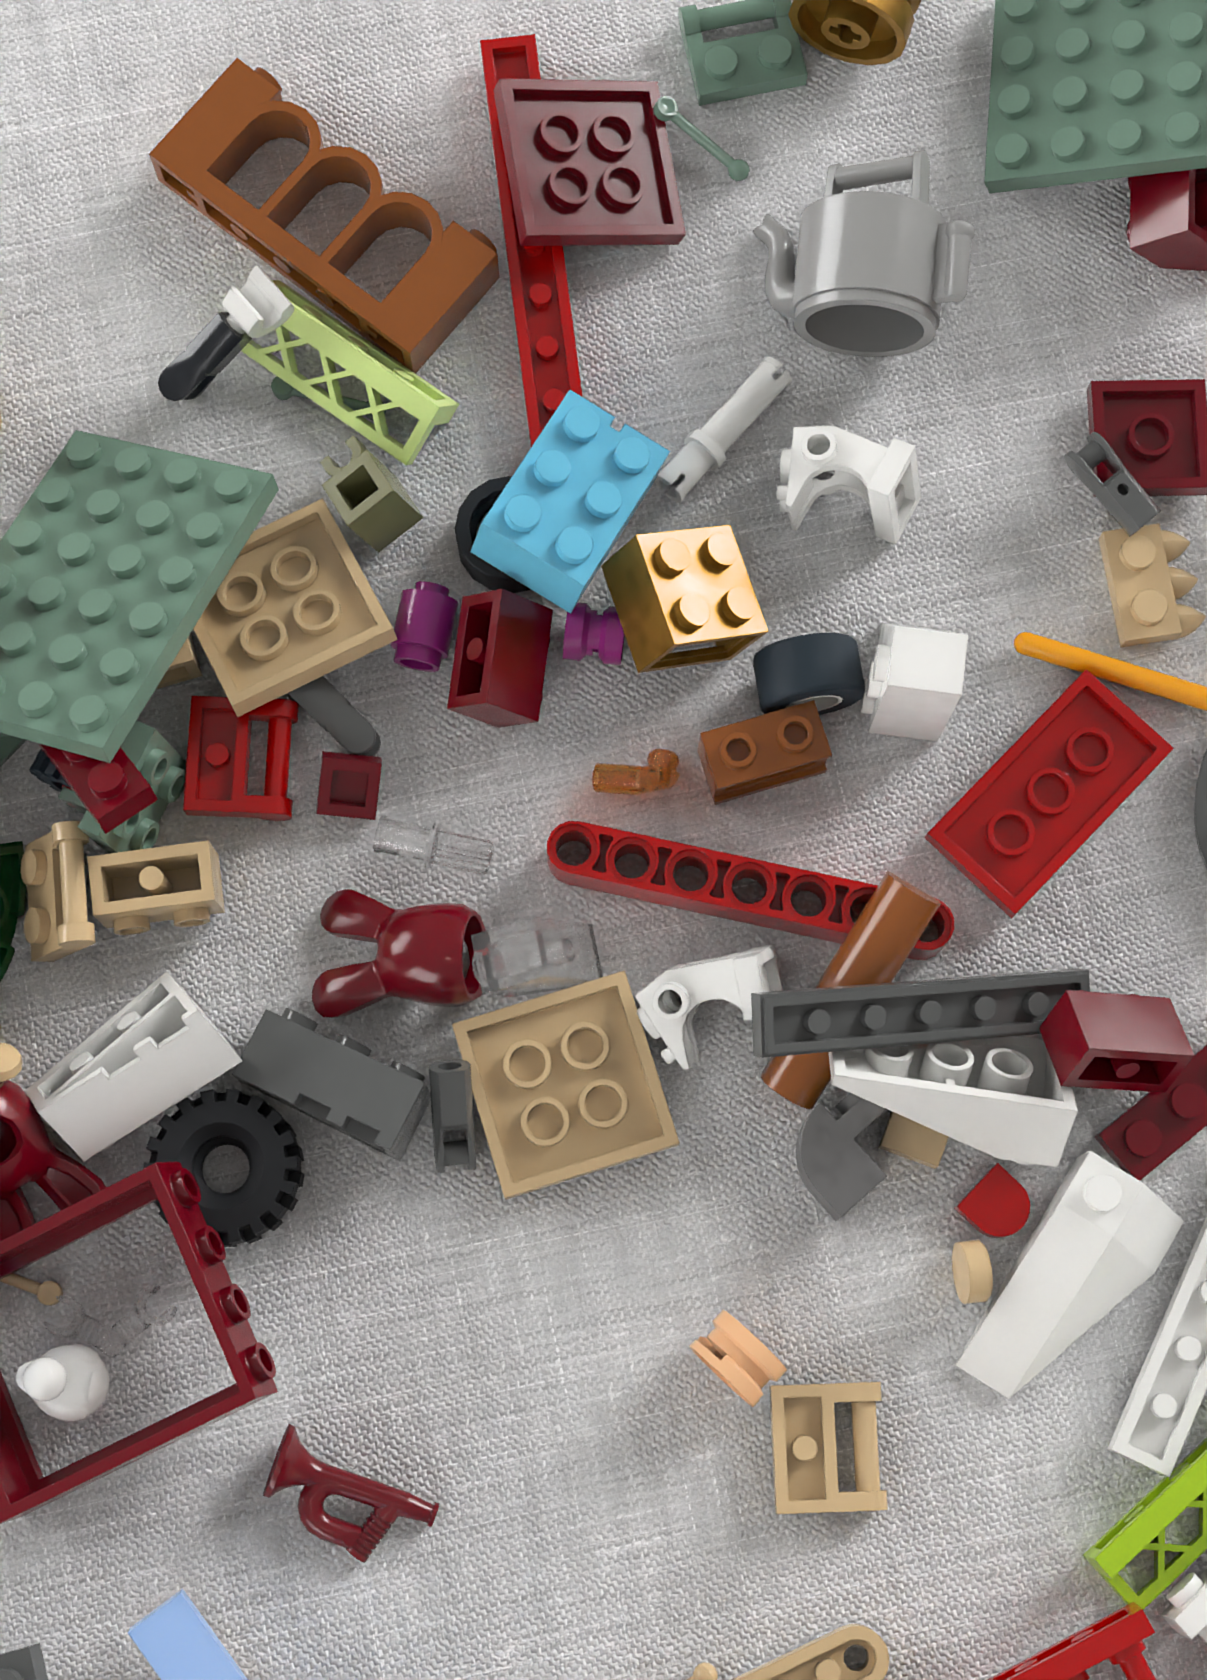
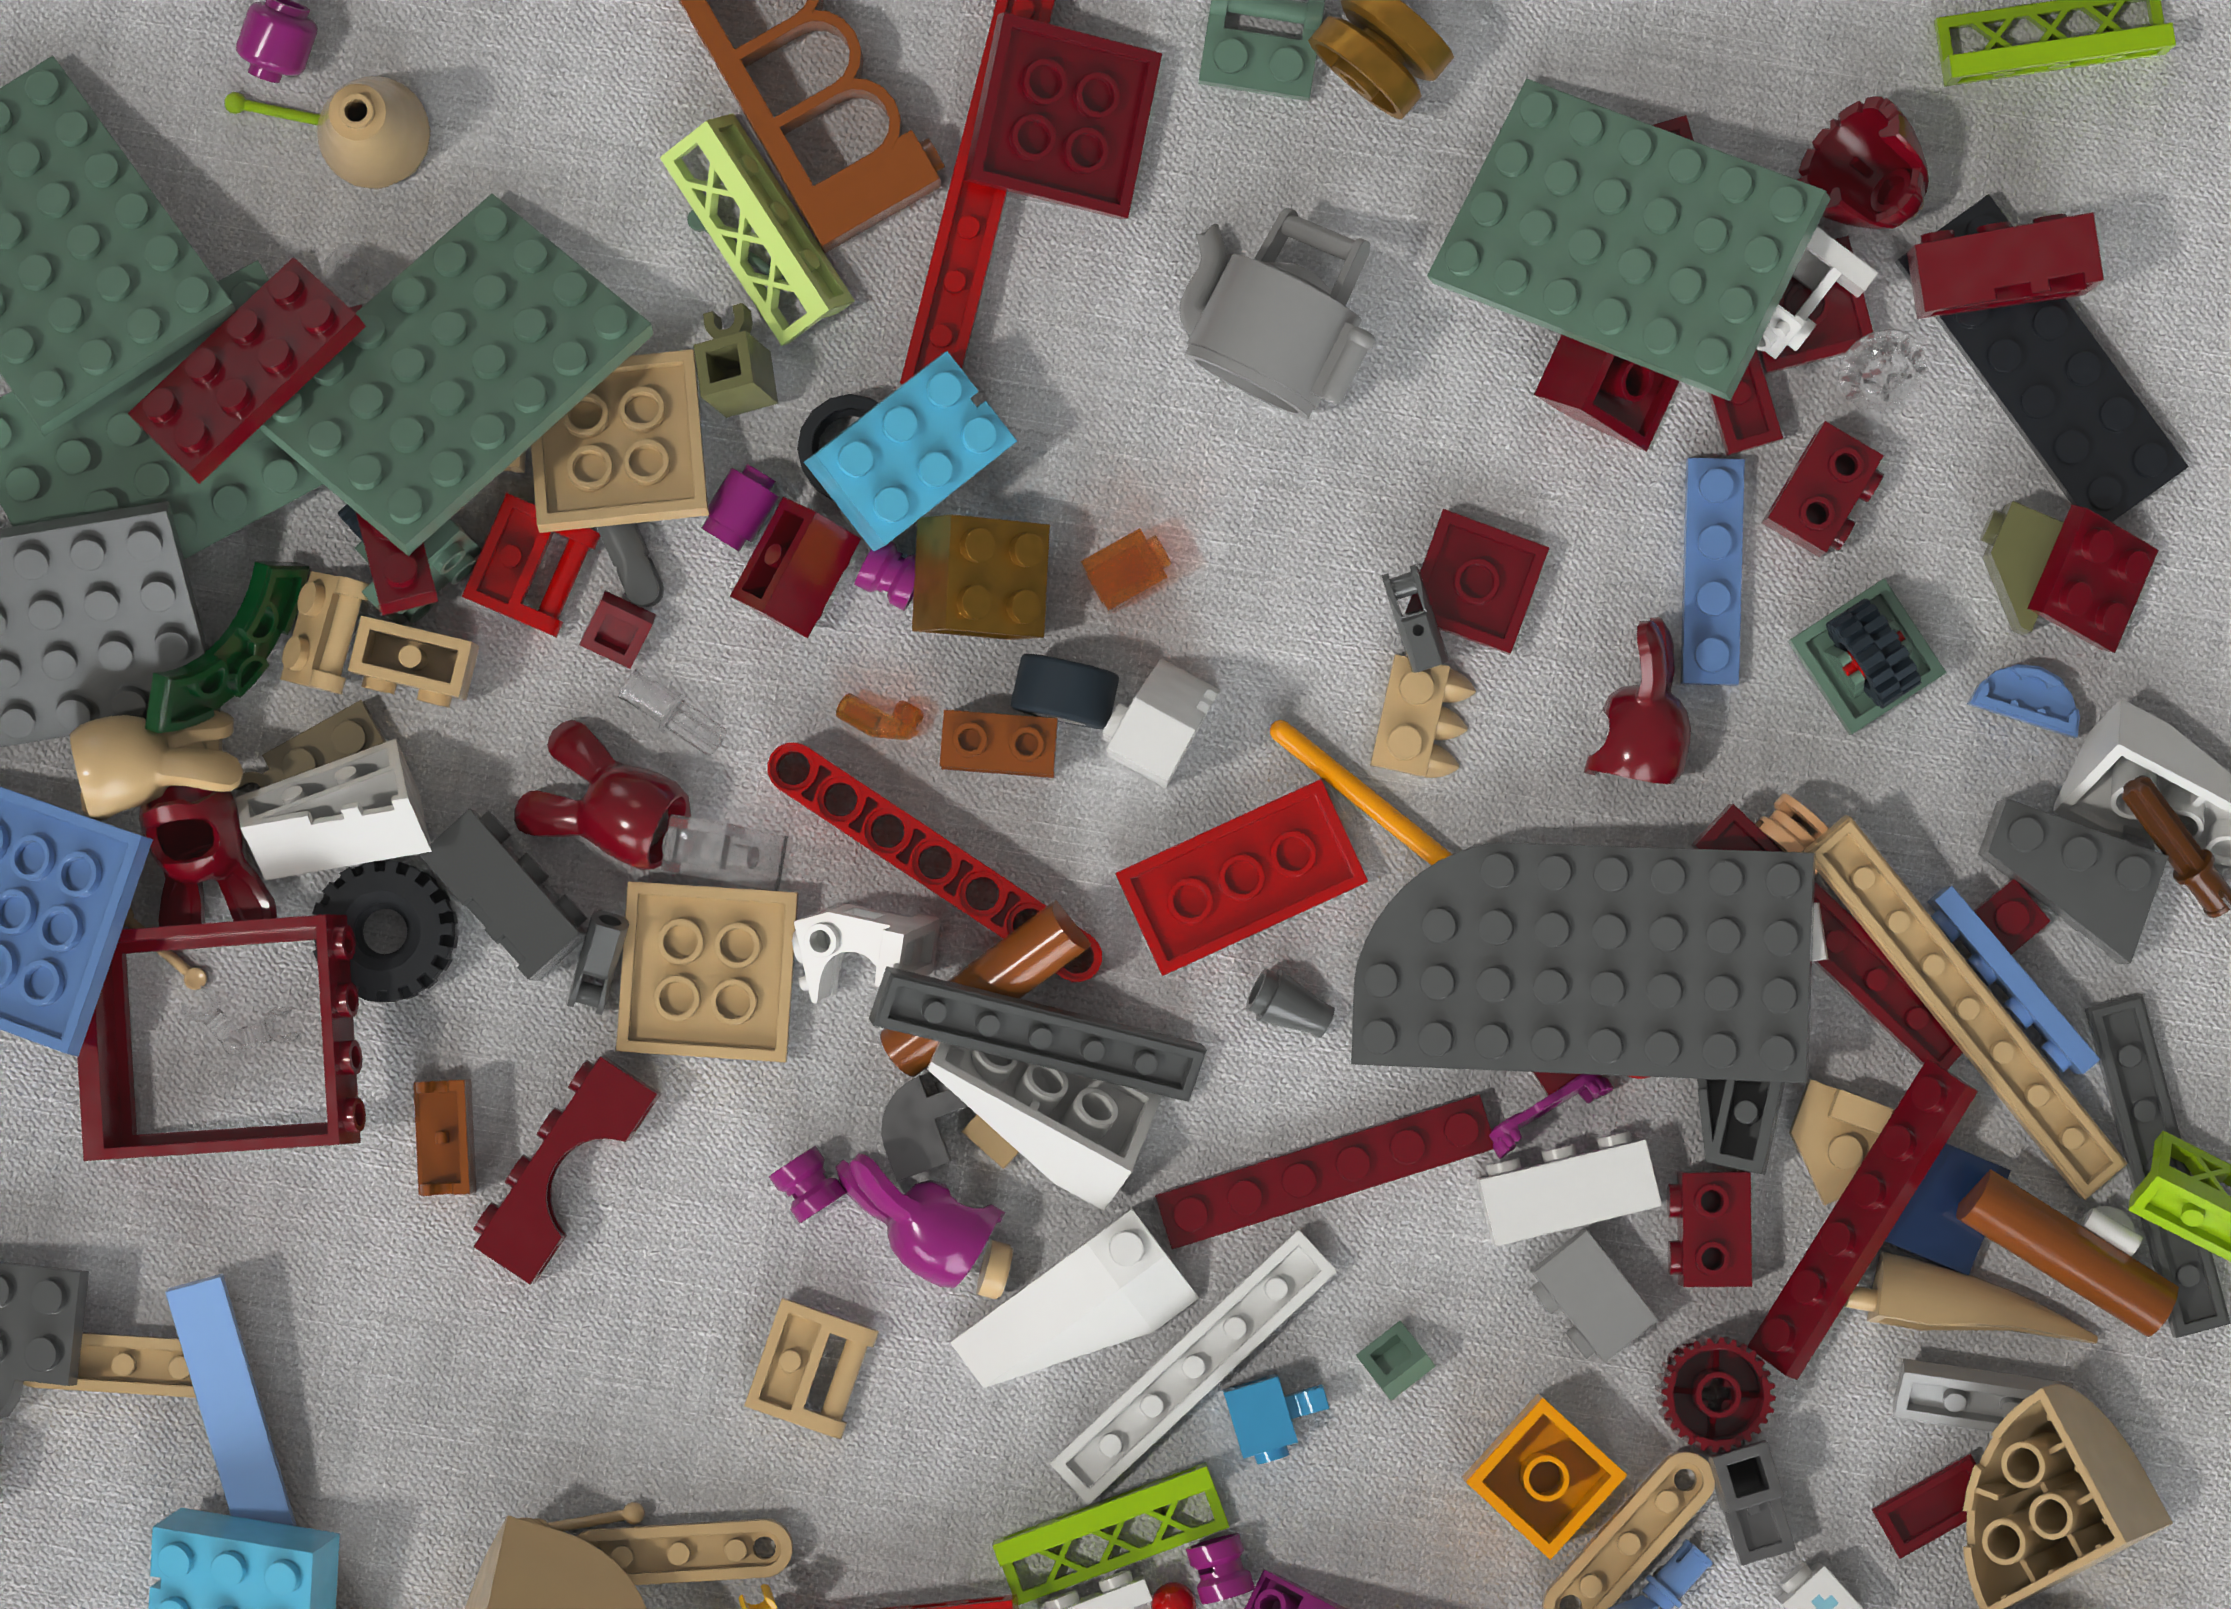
camera: 20 degrees right, 10 degrees up
(66, 1382) = (185, 1063): white animal -> none
(98, 1002) = (326, 742): none -> dark tan plate
(250, 314) = (684, 154): piece -> none
(297, 1467) = (353, 1209): dark red piece -> none
(362, 1355) = (445, 1137): none -> dark orange hinge
(479, 1419) = (524, 1228): none -> dark red arch
(667, 109) = (1158, 87): sand green hinge -> none
(707, 447) = (1086, 422): white pin -> none
(738, 1358) = (762, 1265): light nougat wheel -> none
(750, 1258) = (807, 1184): none -> magenta wheel
(816, 547) = (1126, 569): none -> clear orange brick
(875, 472) = (1209, 537): white tile -> none
(888, 1249) = (925, 1225): none -> magenta piece
(996, 1204) = (1041, 1220): red tile -> none
(1115, 1041) = (1196, 1123): dark red brick -> none
(1146, 896) = (1286, 1003): none -> dark grey cone

